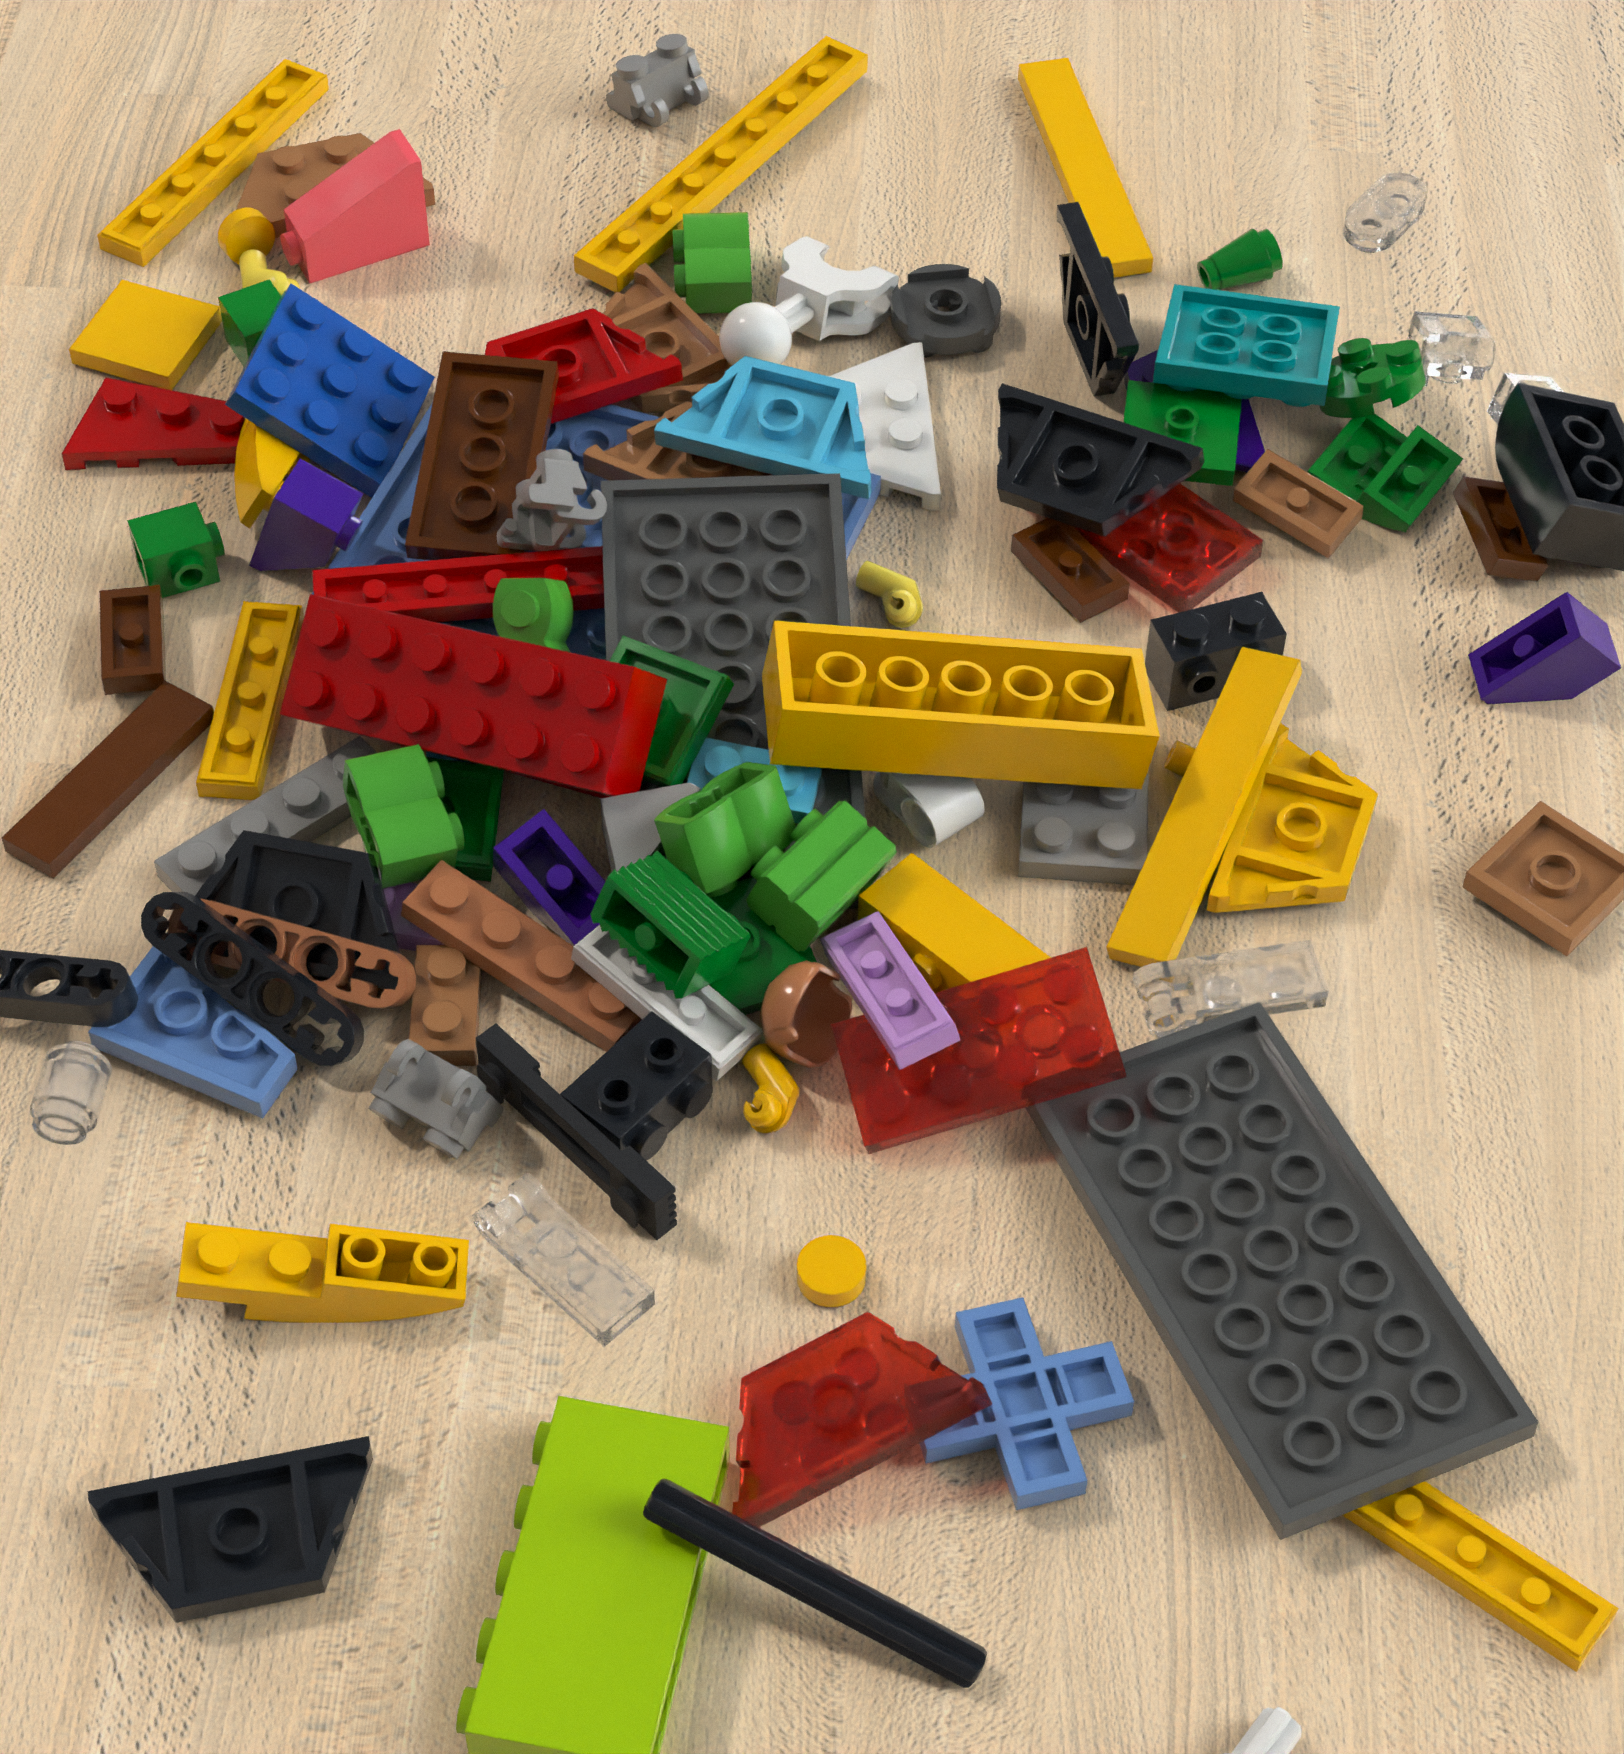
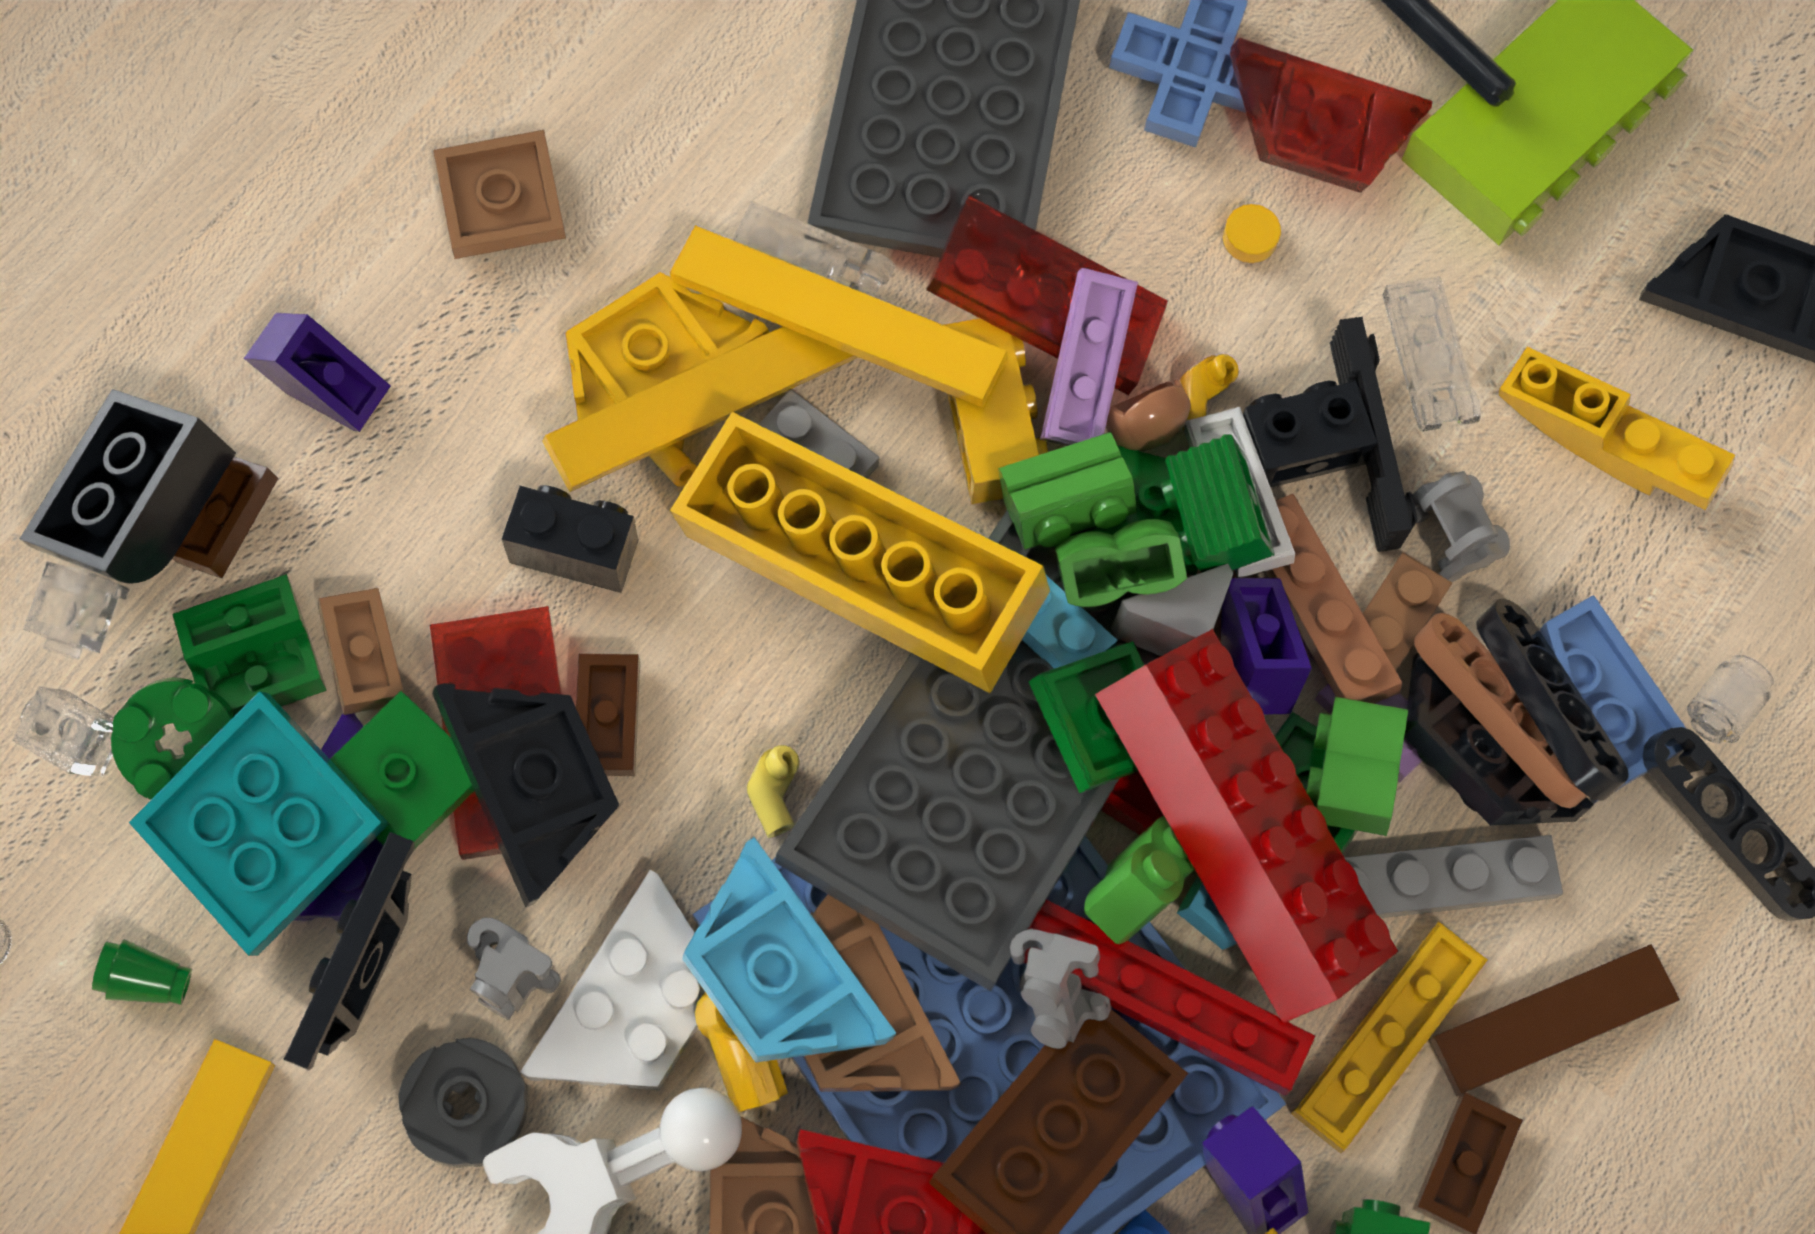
camera: 150 degrees left, 20 degrees up
(981, 369) = (509, 970): none -> light grey piece
(1151, 911) = (839, 316): none -> yellow tile

